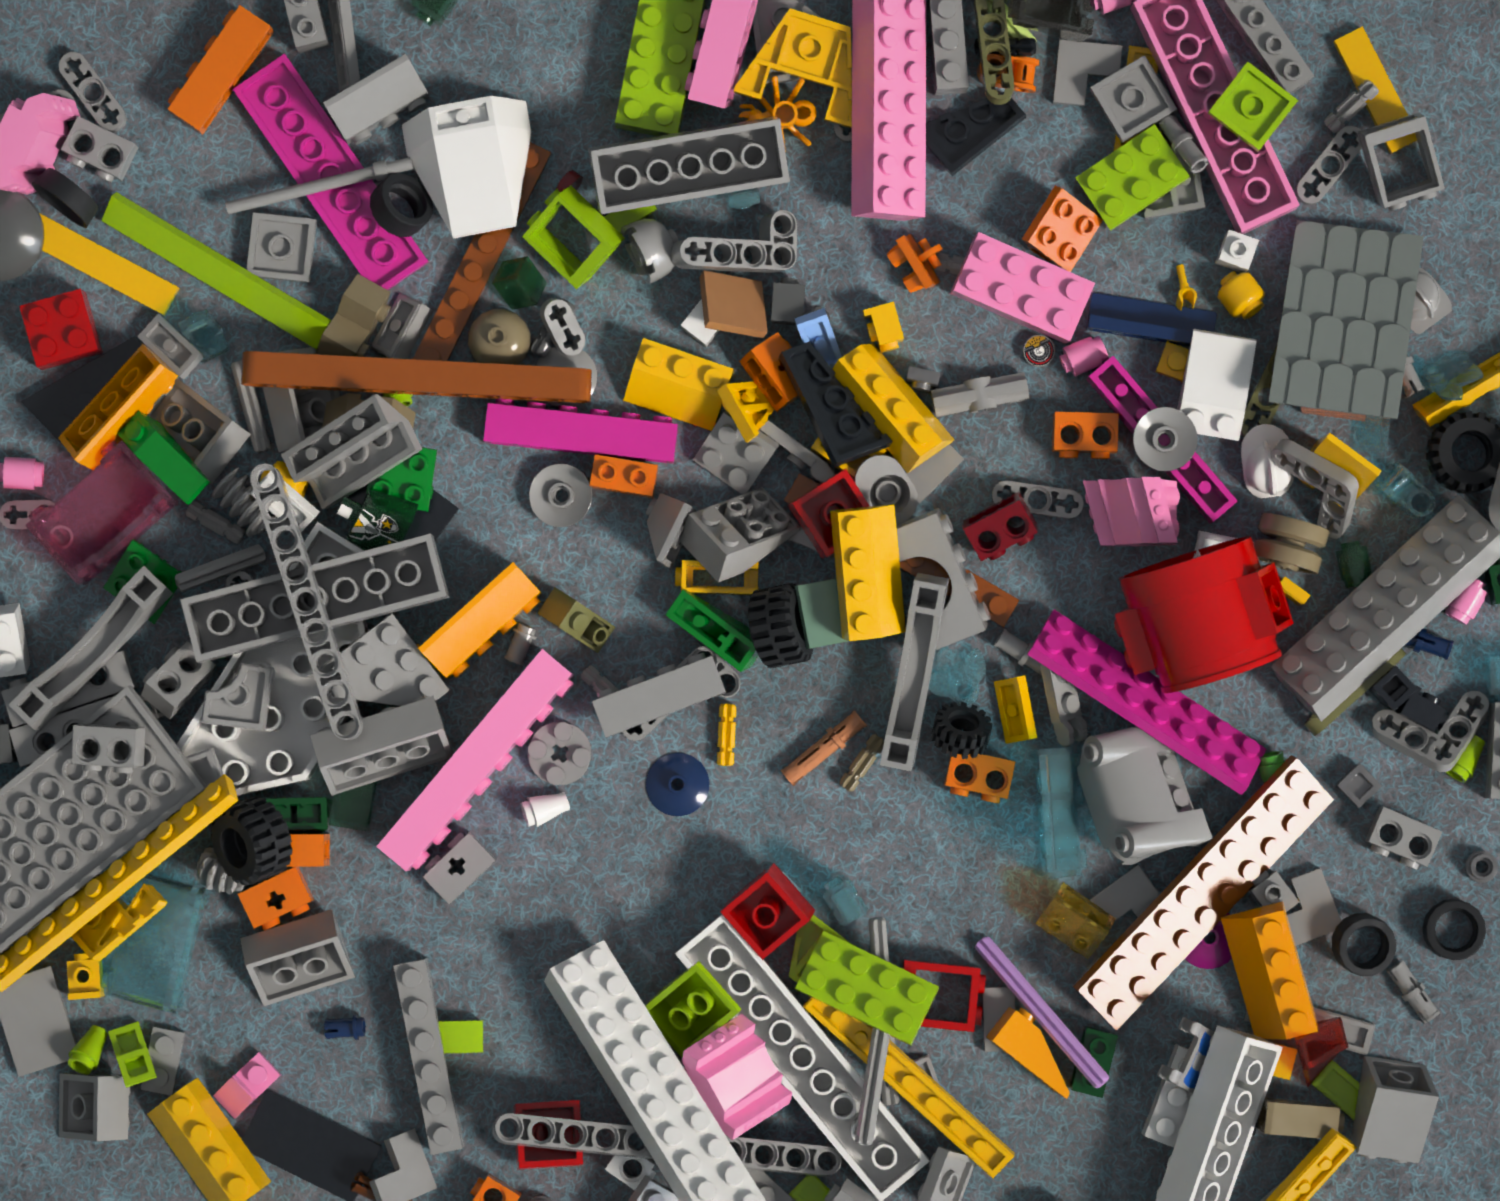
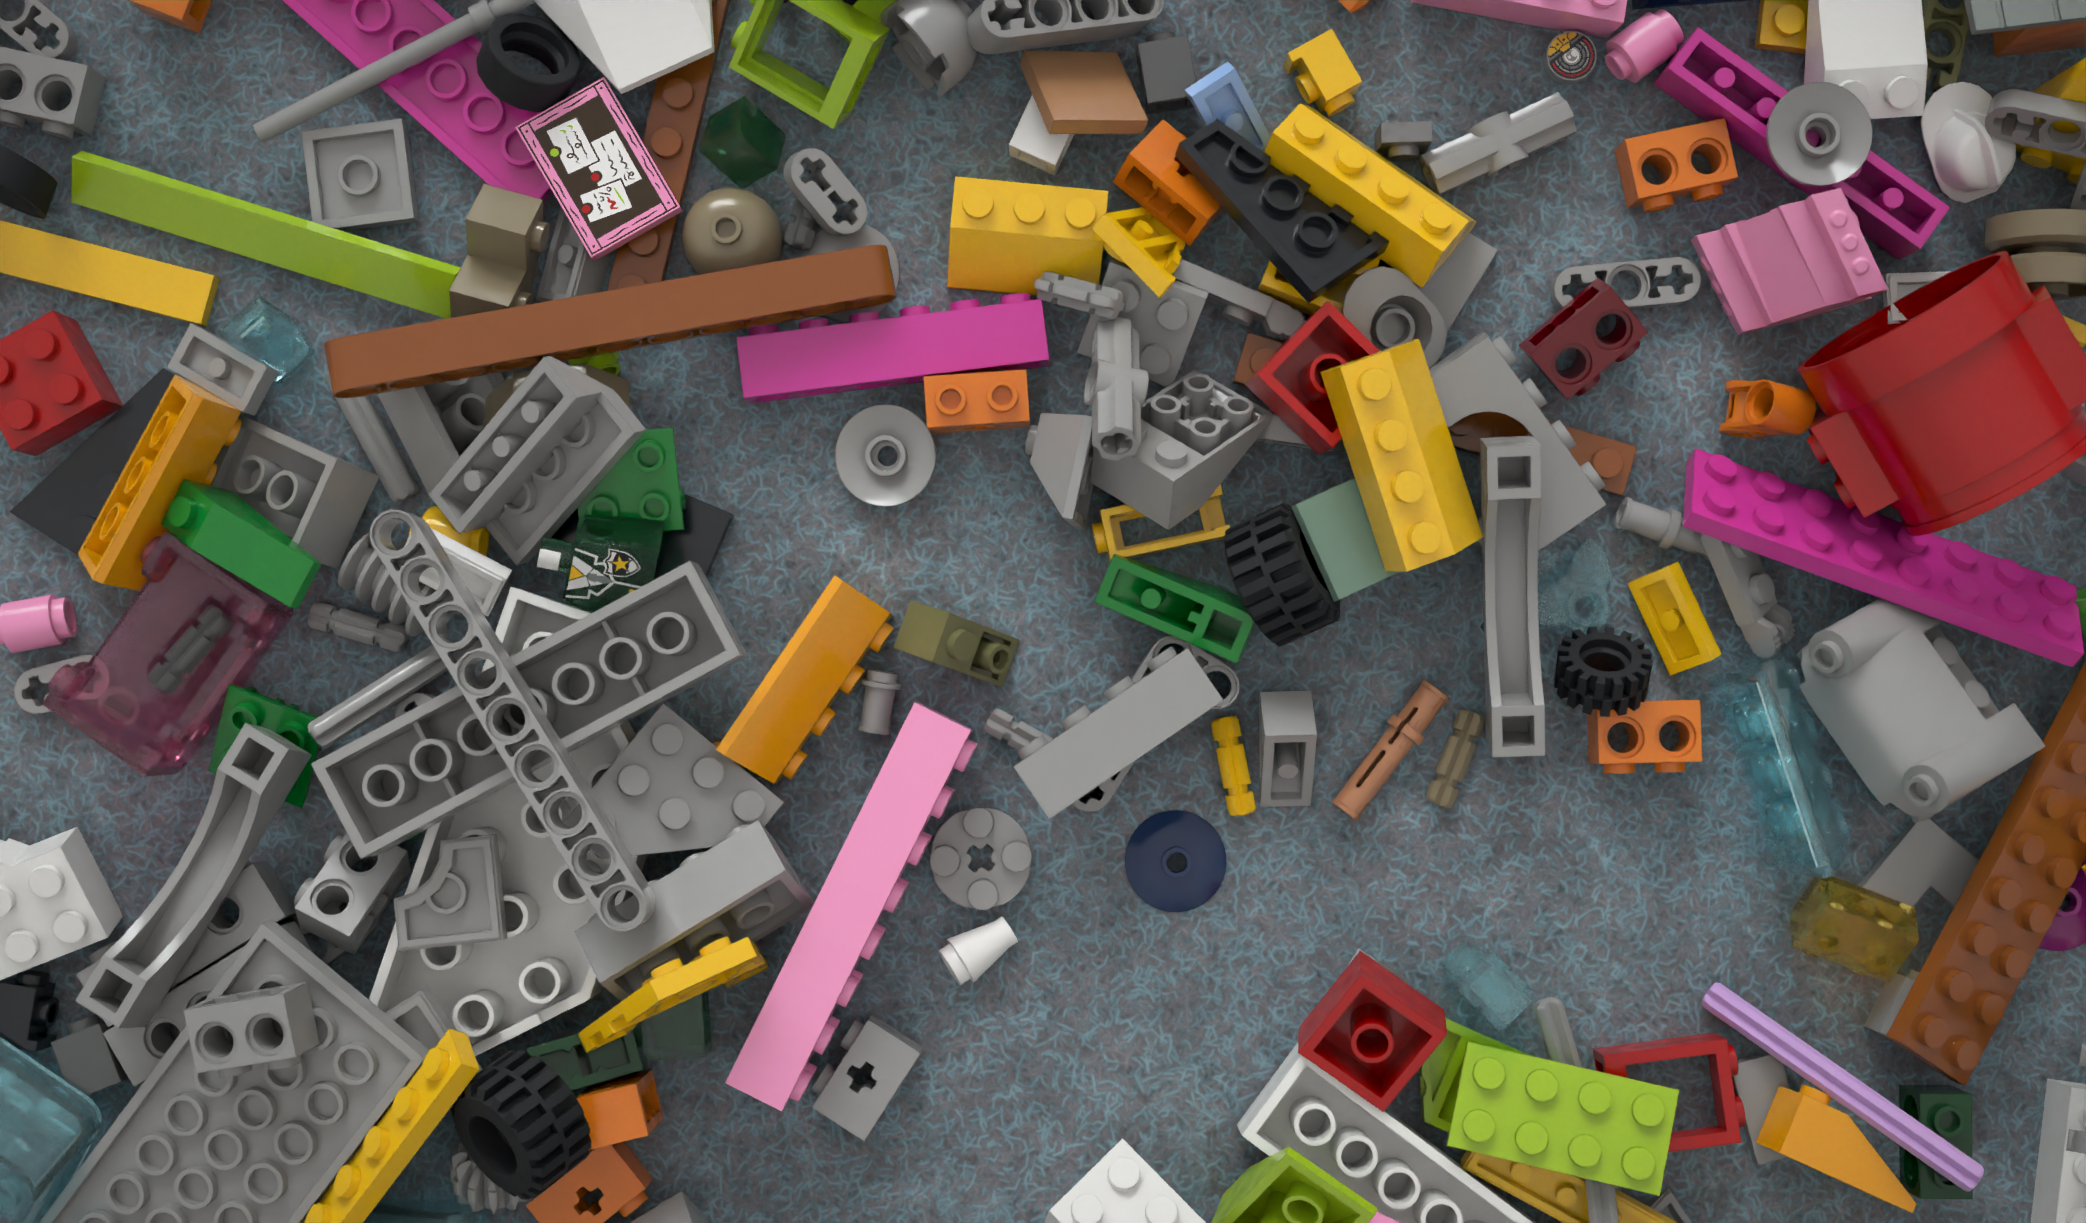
camera: 15 degrees left, 0 degrees up
(113, 512) = (190, 649): none -> dark grey axle
(391, 776) = (674, 984): none -> yellow wing
(428, 280) = (598, 169): none -> tile
(700, 427) = (1079, 295): none -> light grey axle
(707, 490) = (1116, 389): none -> light grey piece
(760, 731) = (1286, 748): none -> light grey slope
(1099, 596) = (1766, 409): none -> orange piece

